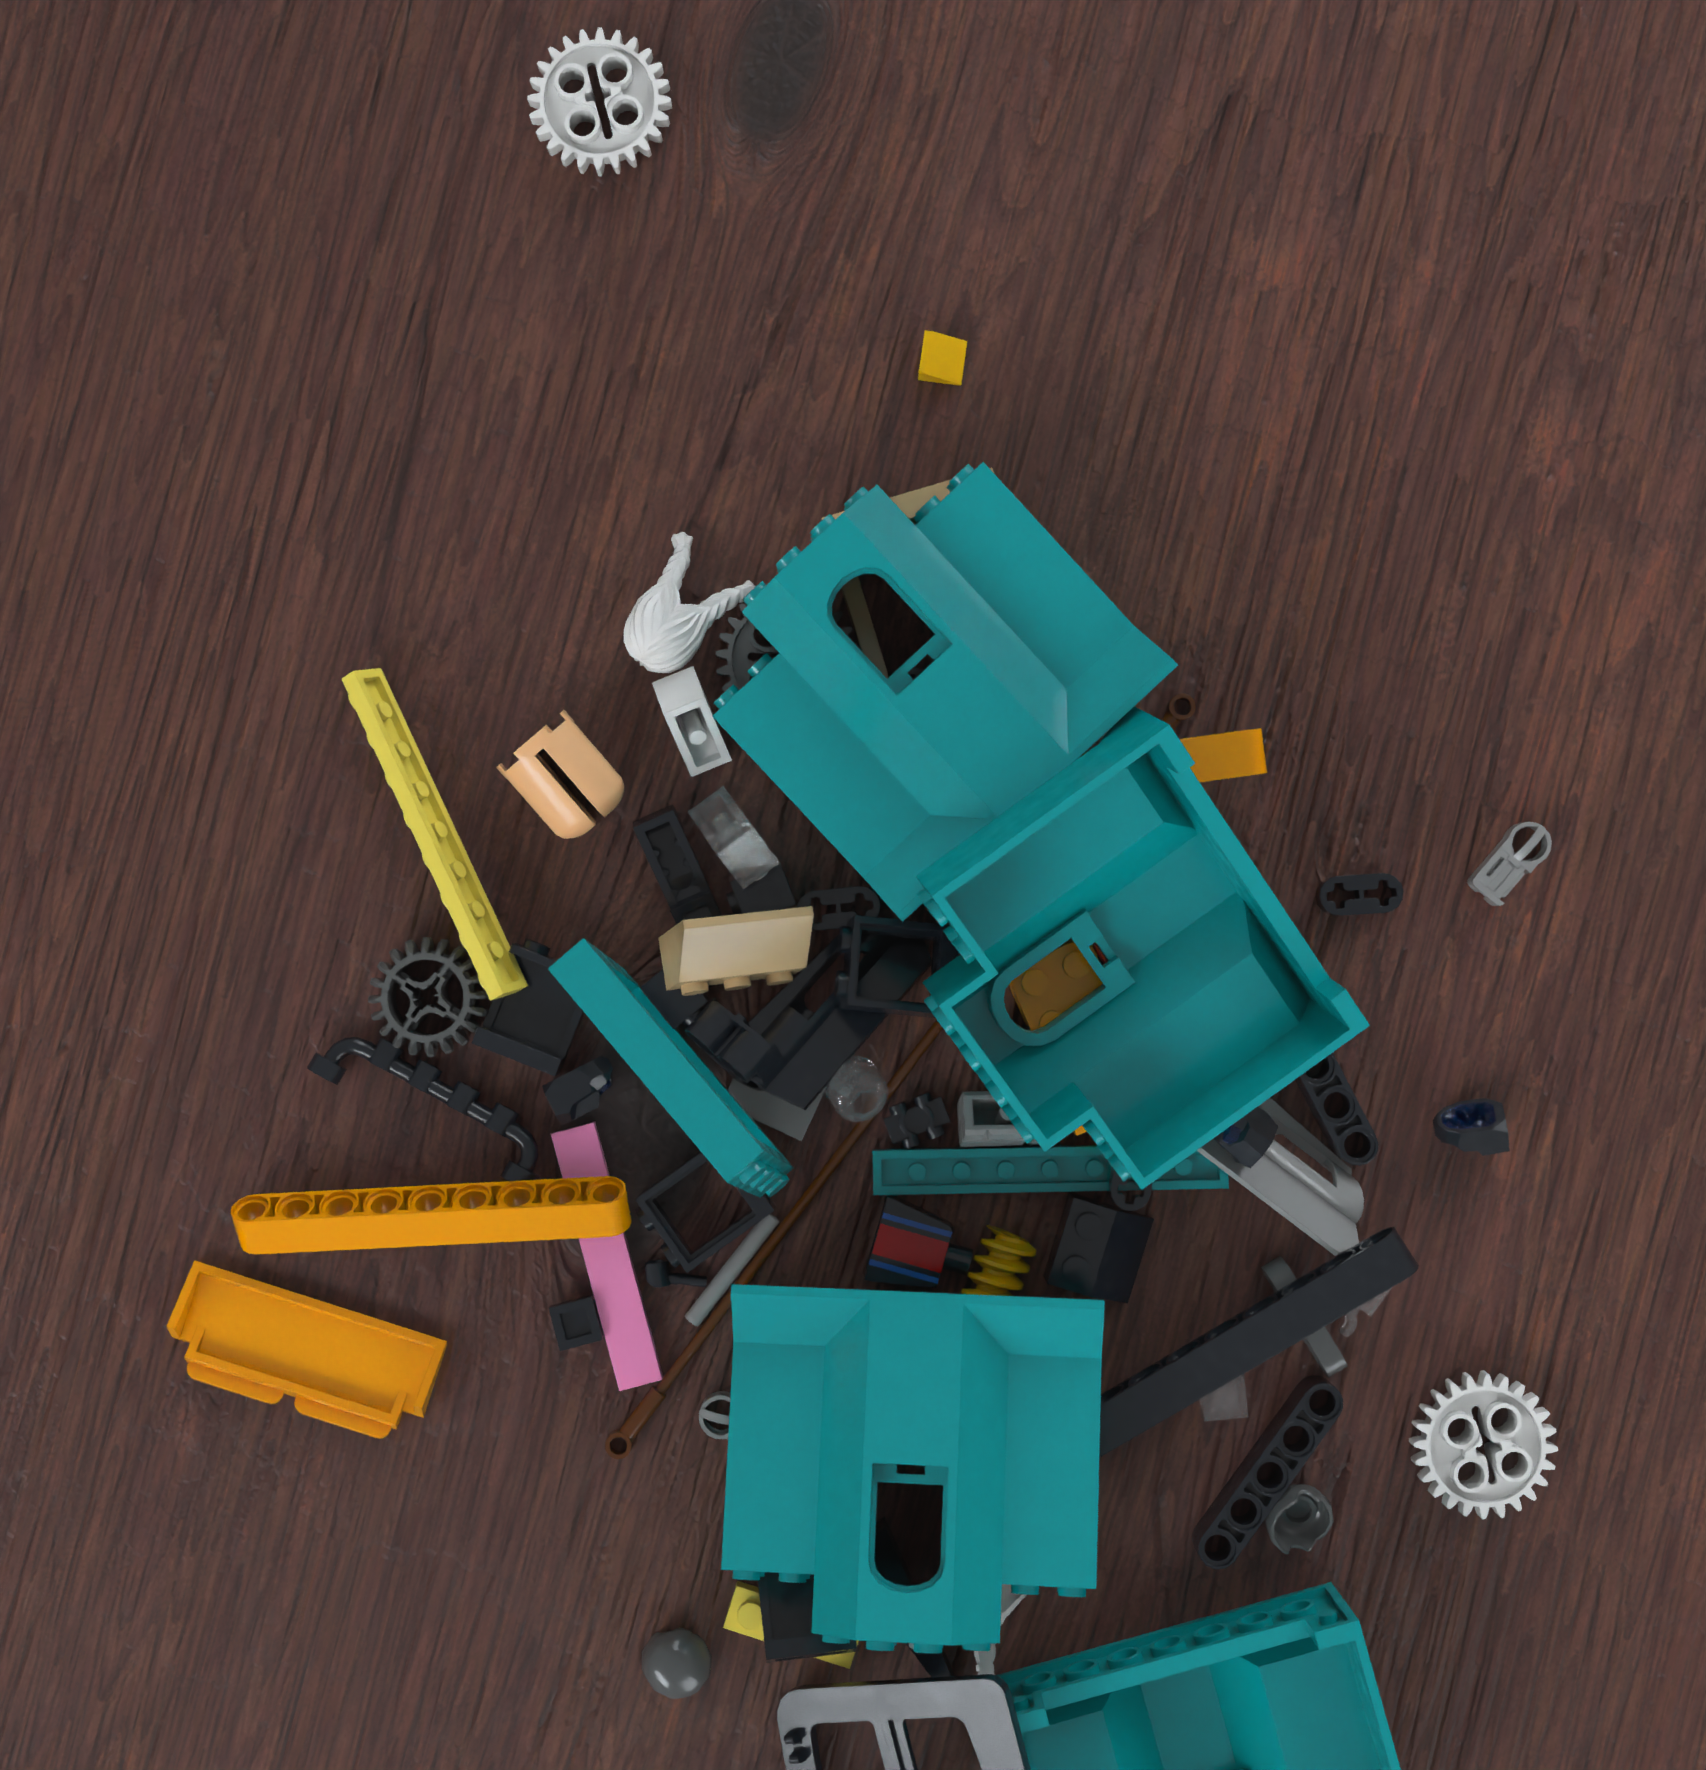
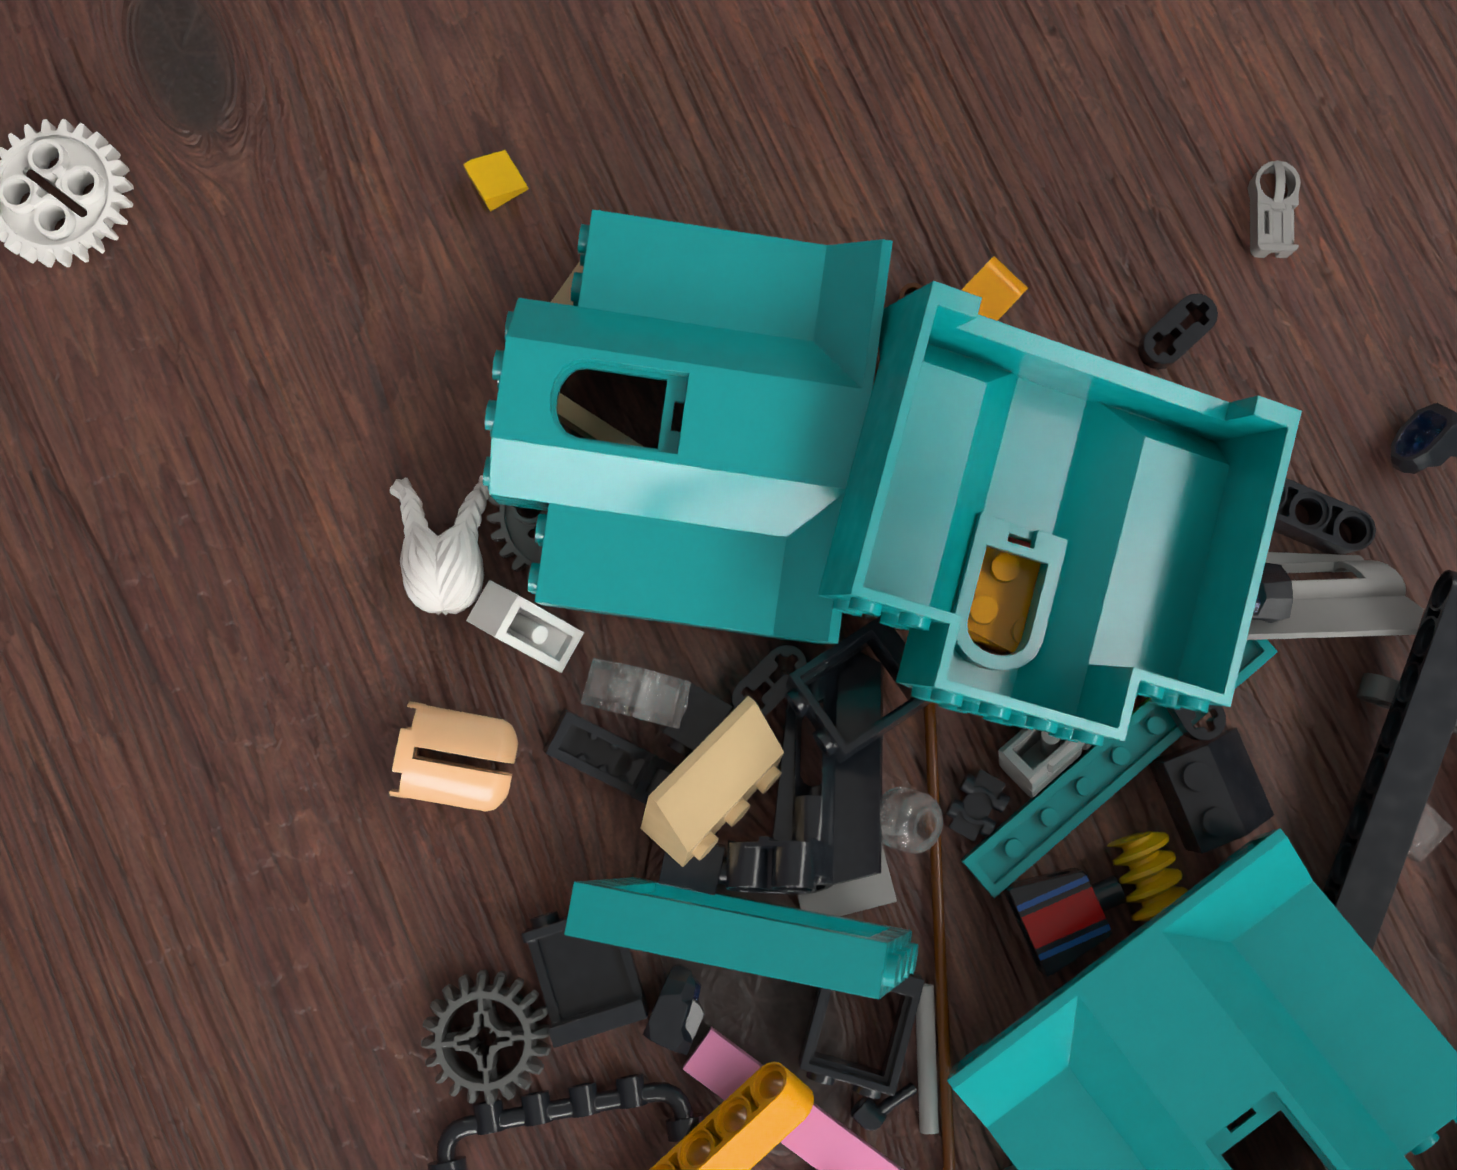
camera: 30 degrees left, 5 degrees down
(434, 832) = (383, 893): light yellow plate -> none

